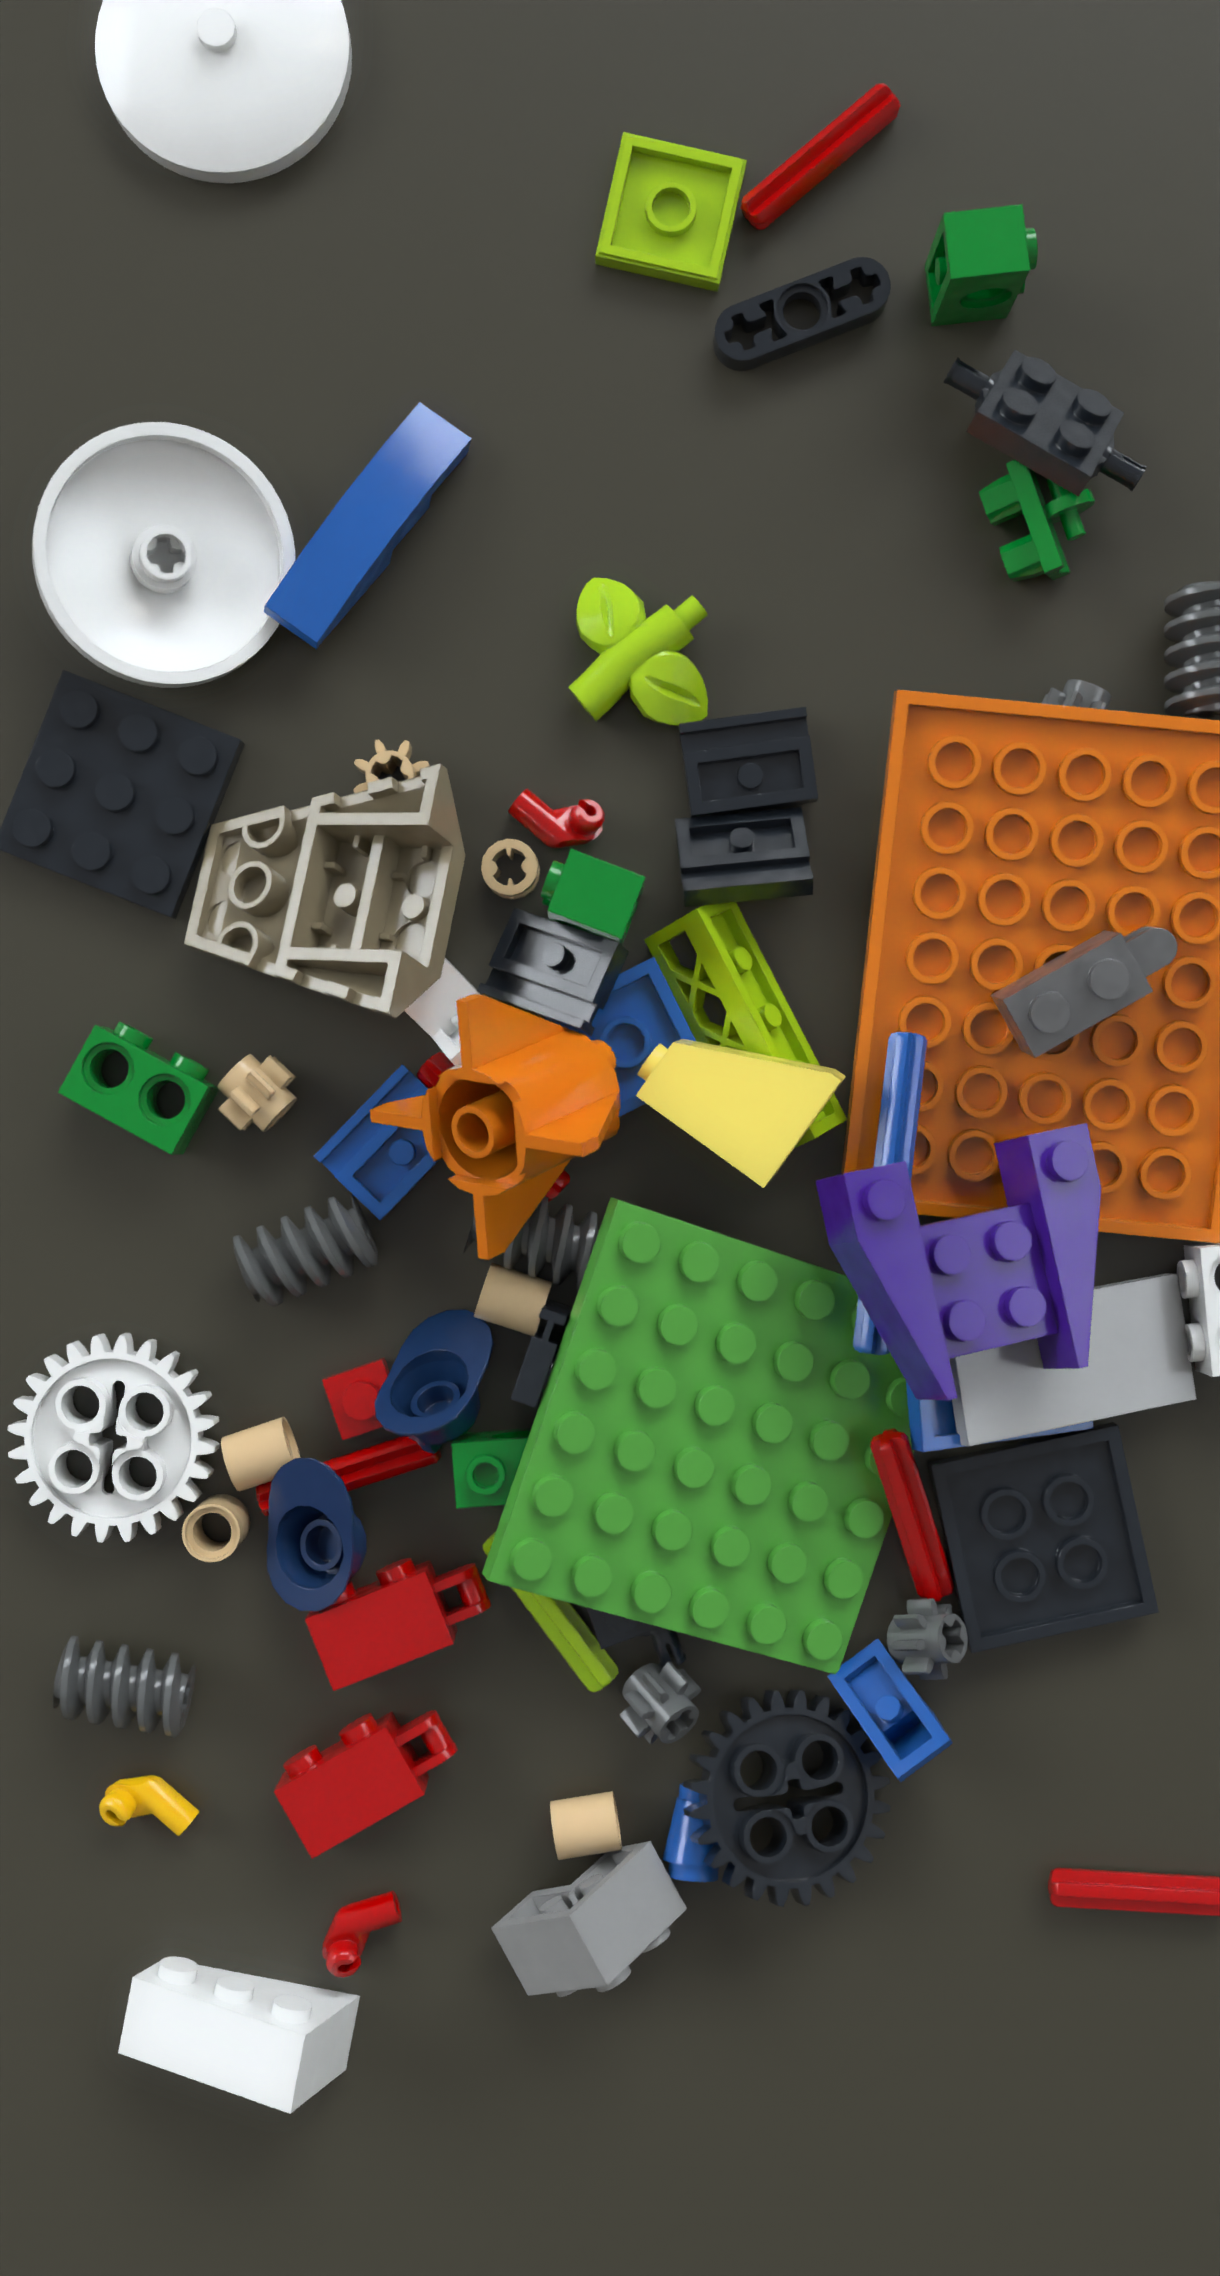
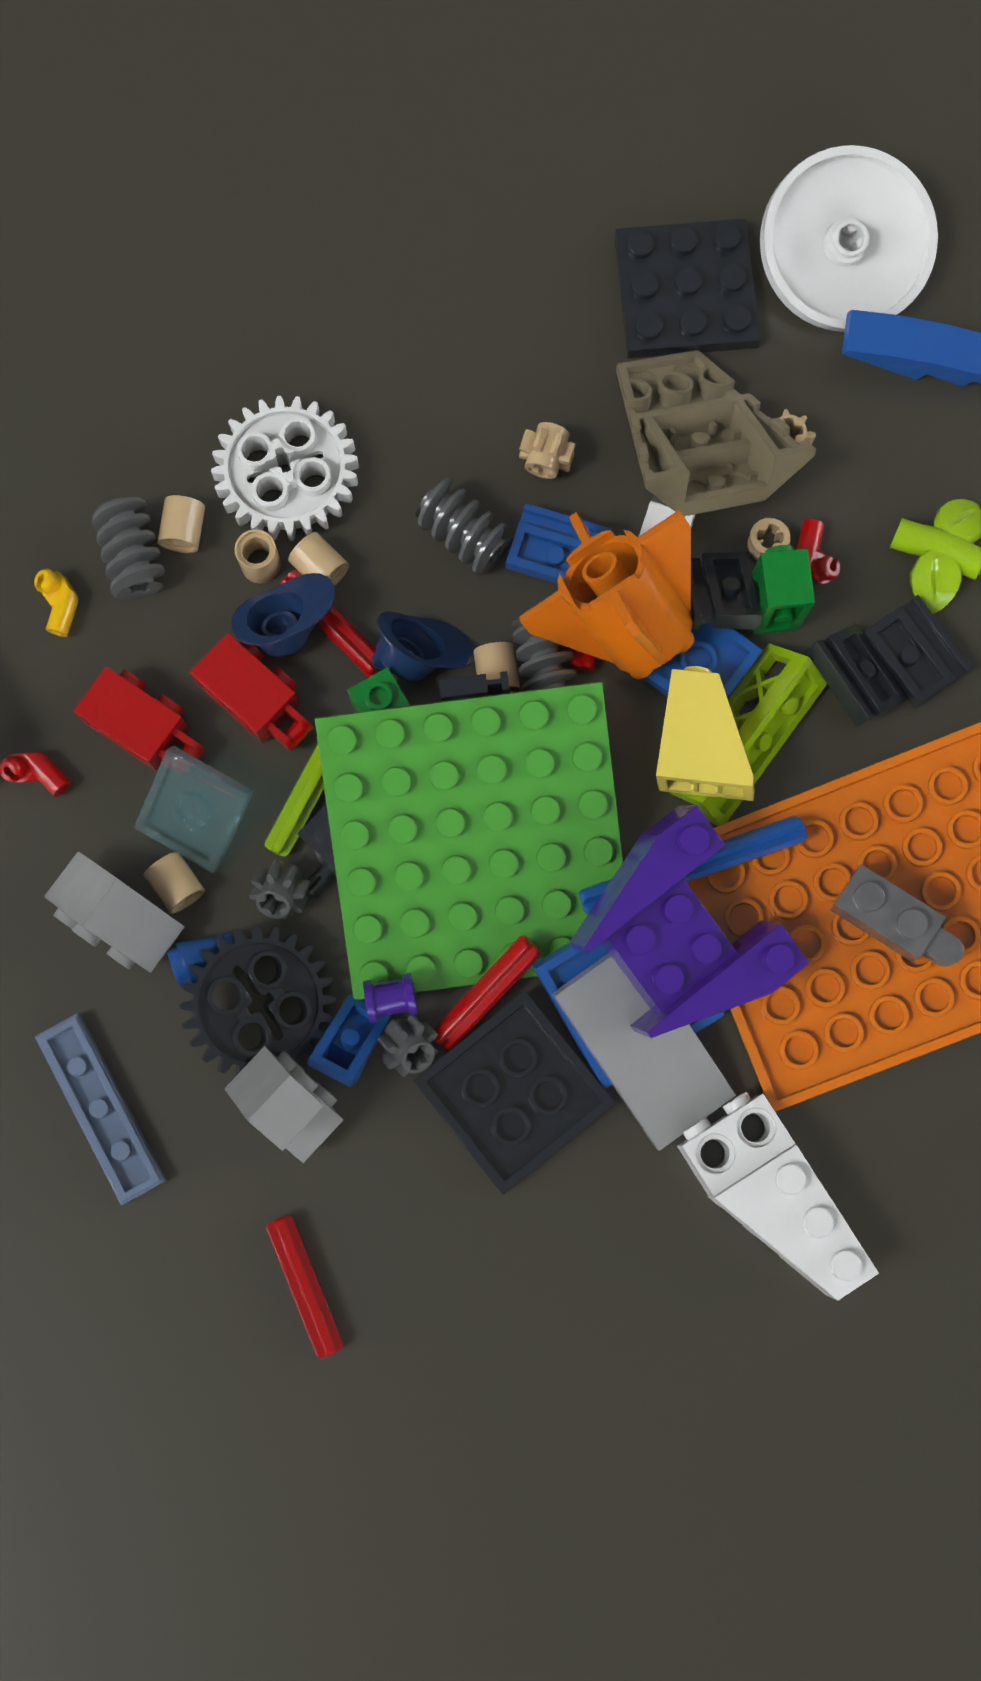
camera: 65 degrees right, 10 degrees down
(124, 1603) = (181, 524): none -> tan beam
(135, 1100) = (514, 381): green brick -> none
(354, 1395) = (381, 599): red plate -> none
(507, 1762) = (193, 809): none -> clear light blue plate
(815, 2035) = (100, 1109): none -> sand blue tile
(865, 1637) = (390, 997): none -> dark purple bush
(932, 1831) = (284, 1103): none -> light grey brick

